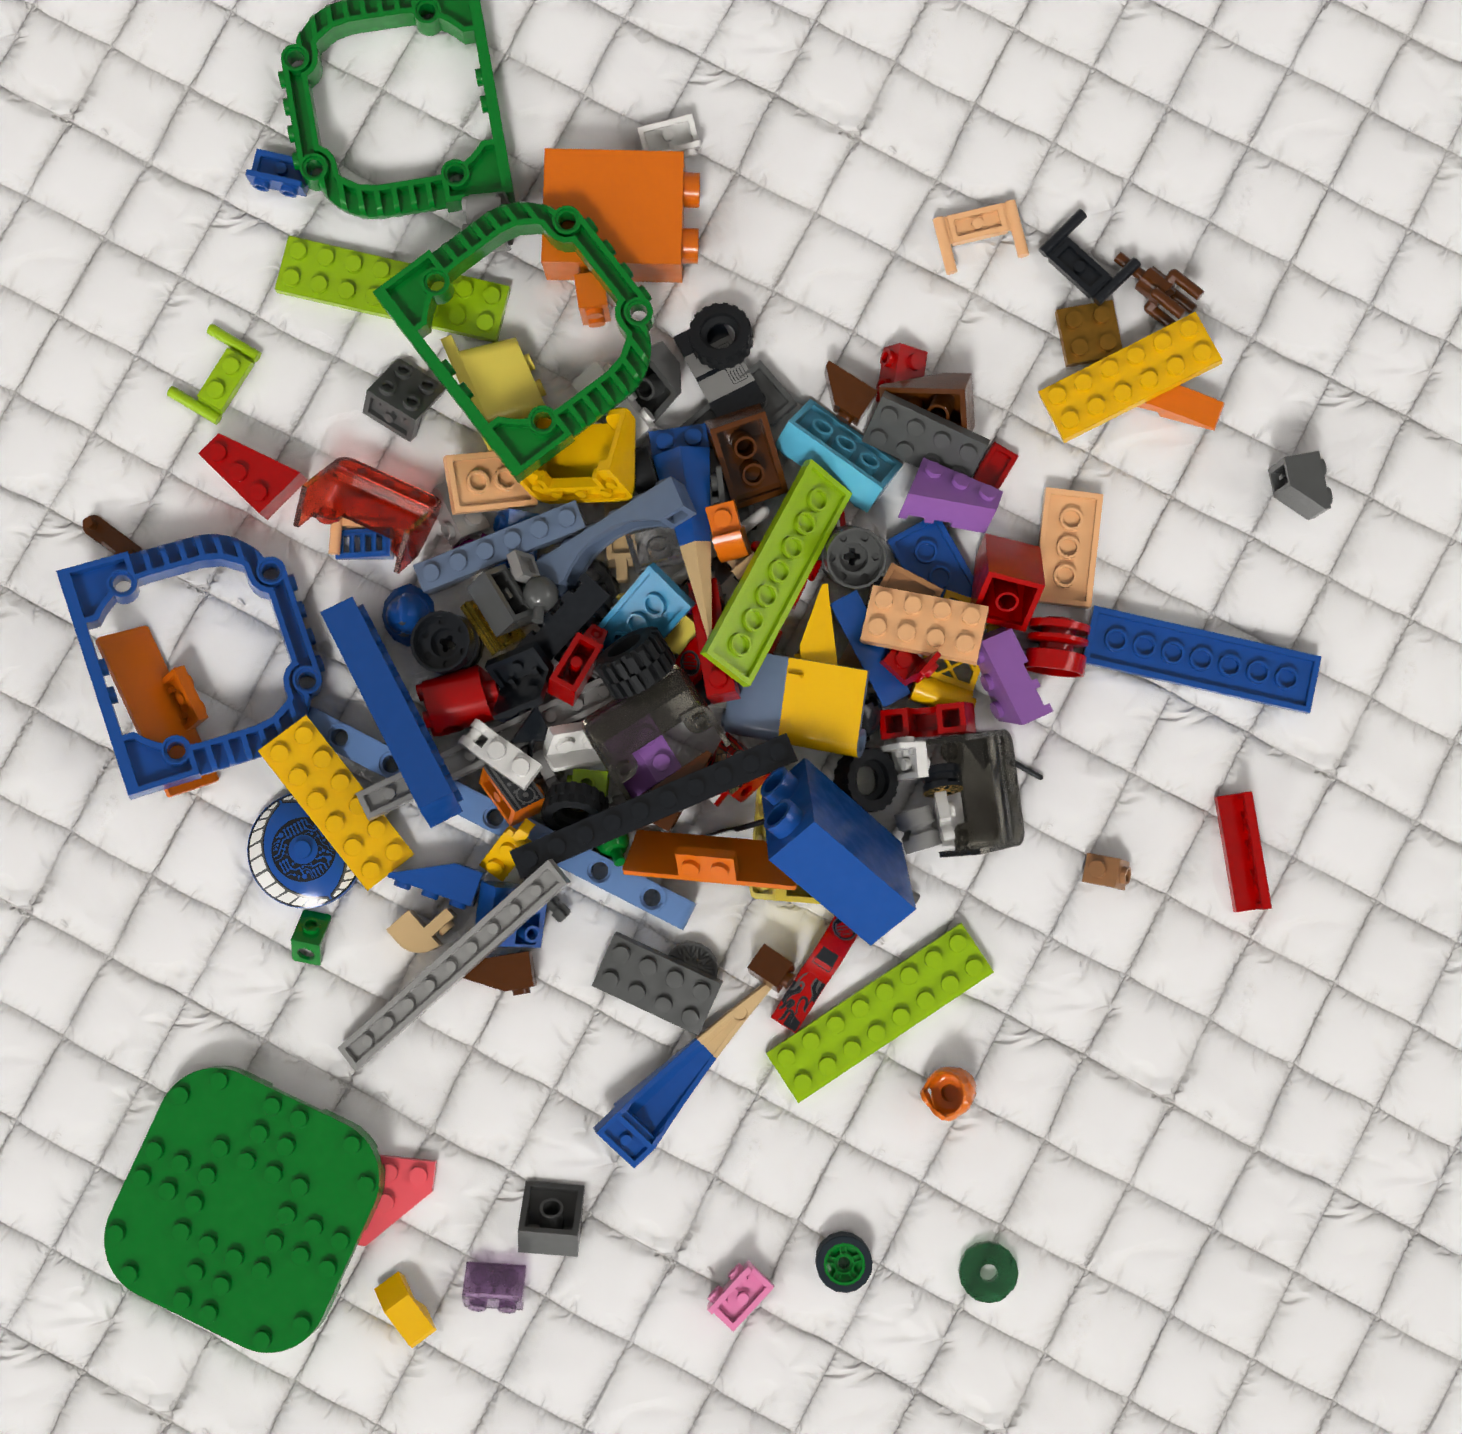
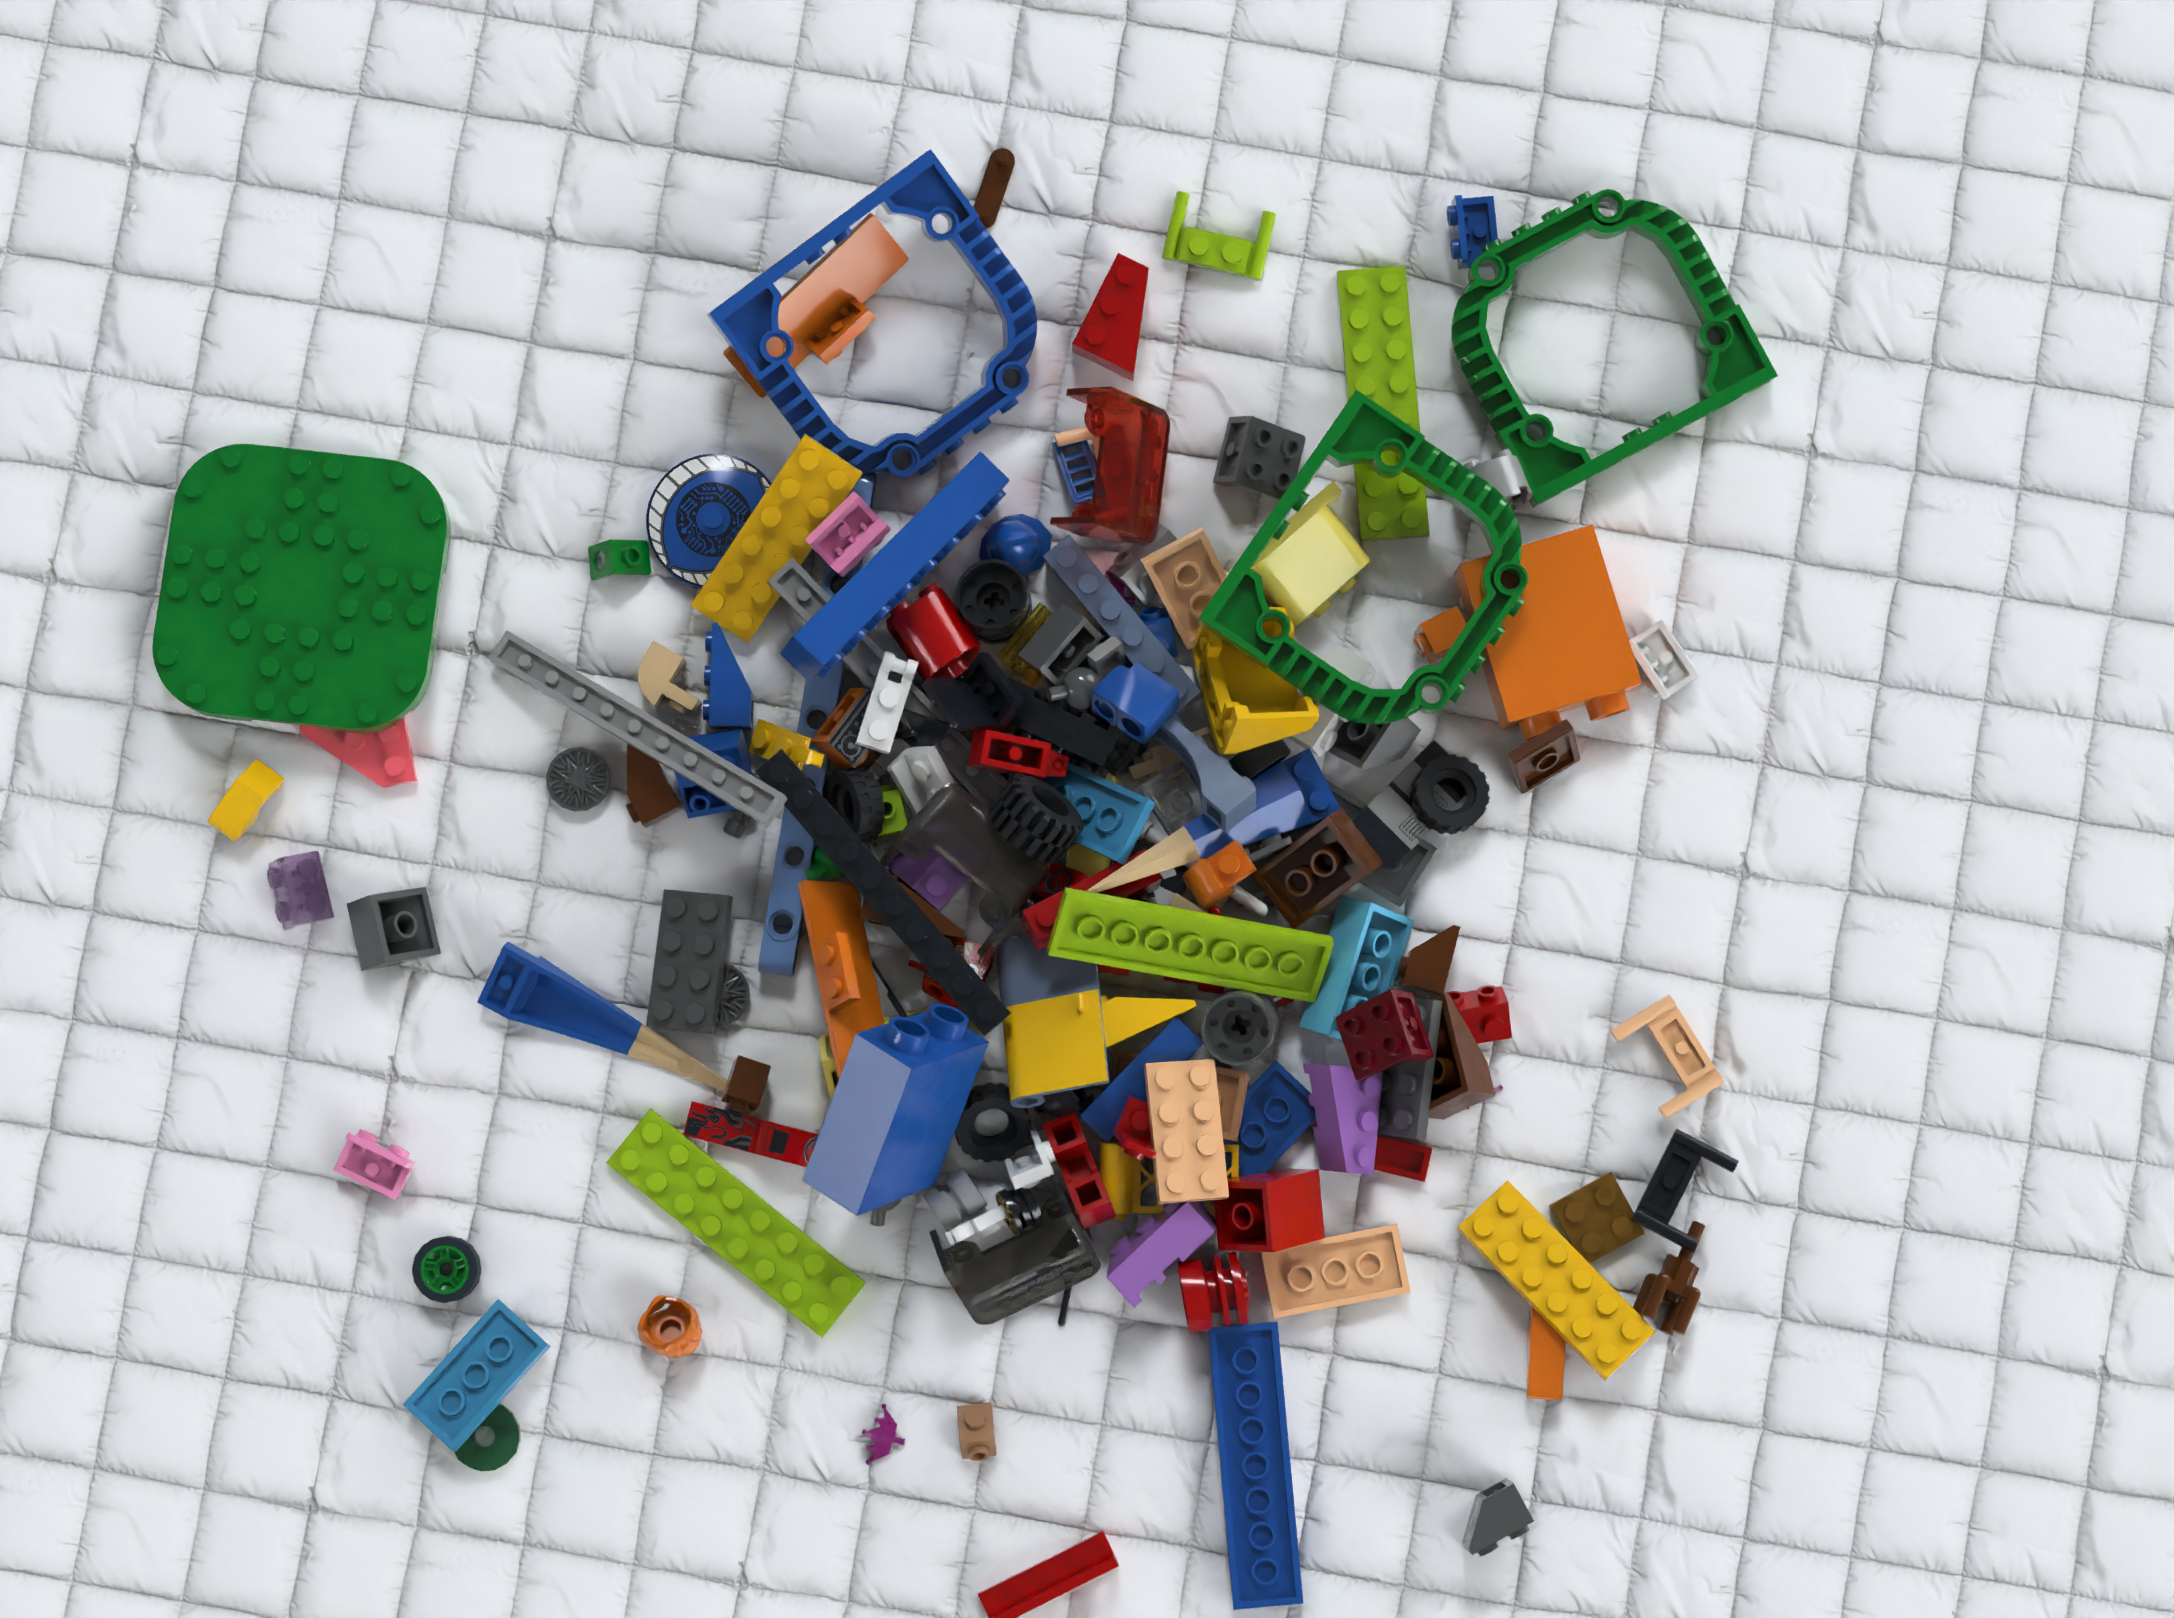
camera: 70 degrees right, 0 degrees up
(352, 742) = (848, 535): none -> bright pink bracket
(479, 1027) = (578, 779): none -> dark grey wheel
(565, 552) = (1135, 701): none -> blue piece
(715, 251) = (1544, 756): none -> reddish brown tile
(897, 443) = (1383, 1033): none -> dark red bracket
(938, 1265) = (476, 1375): none -> dark azure plate
(1087, 948) = (882, 1436): none -> magenta piece

